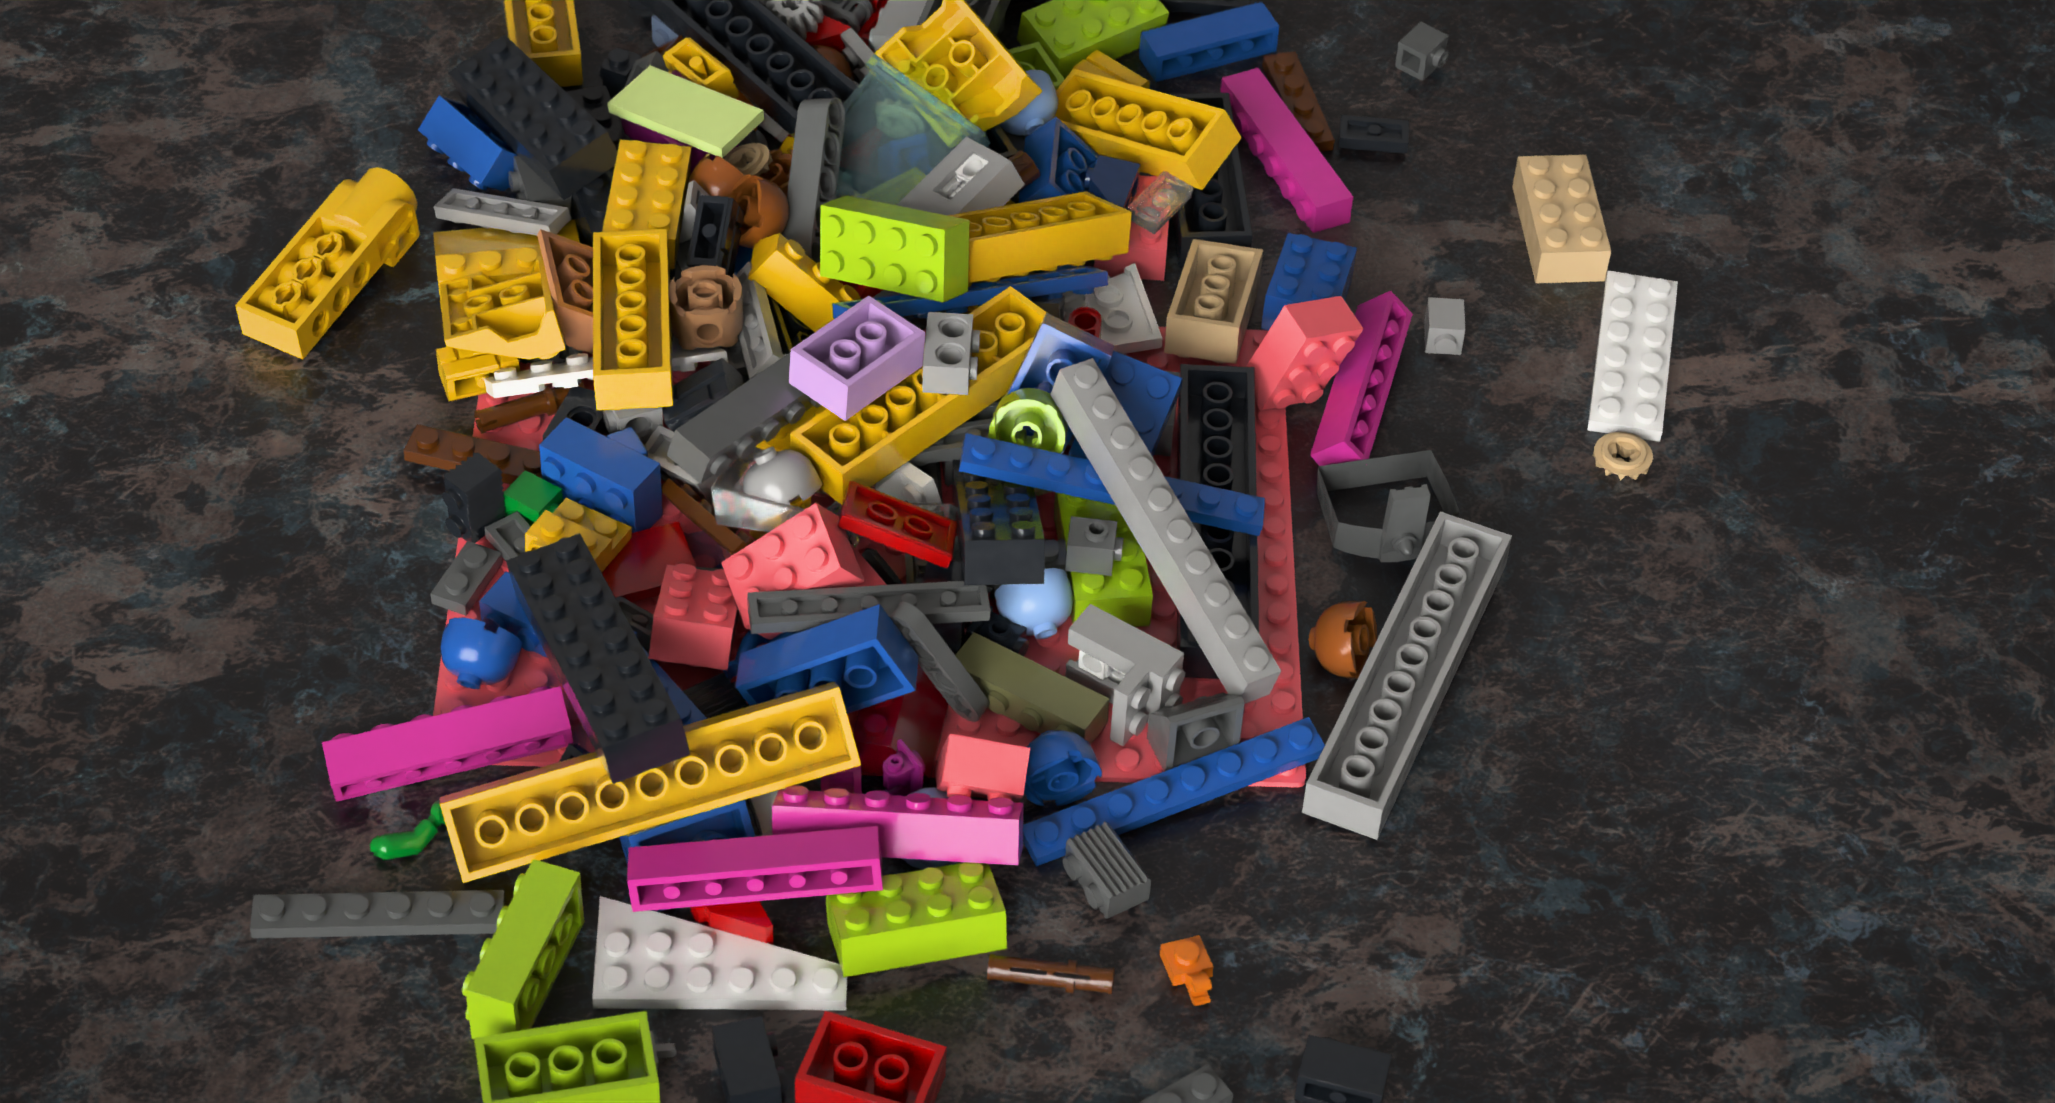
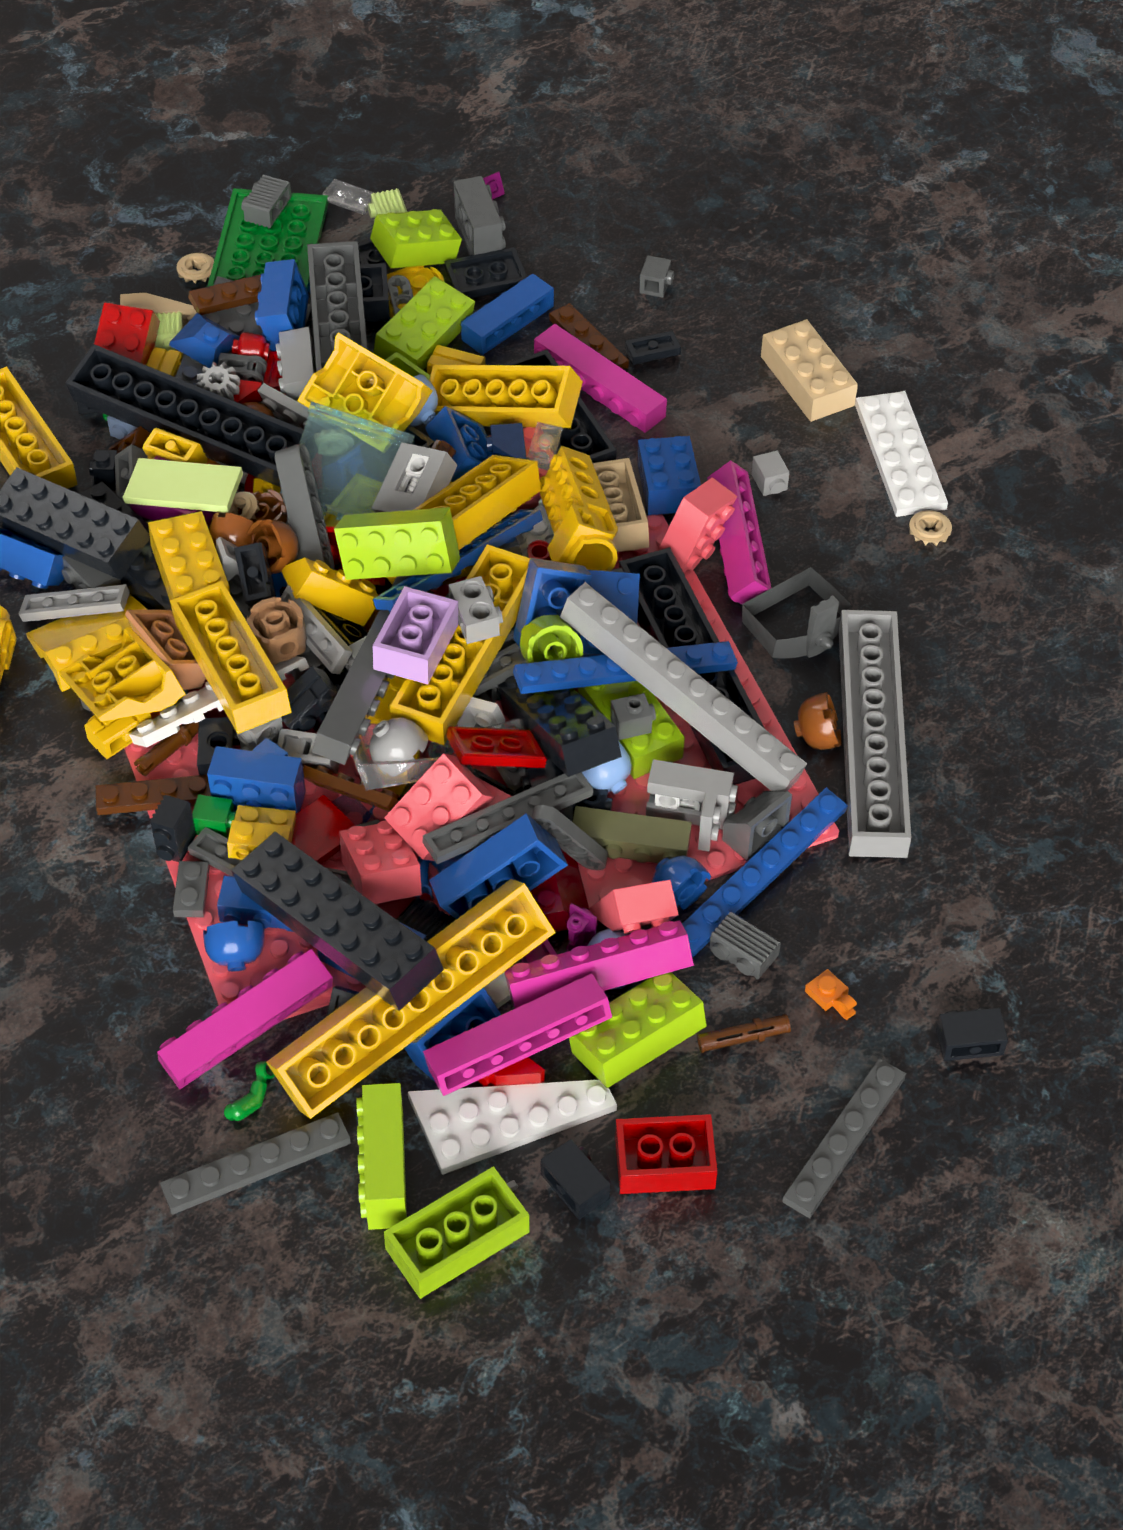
camera: 20 degrees left, 5 degrees up
(1154, 288) = (578, 512): none -> yellow brick

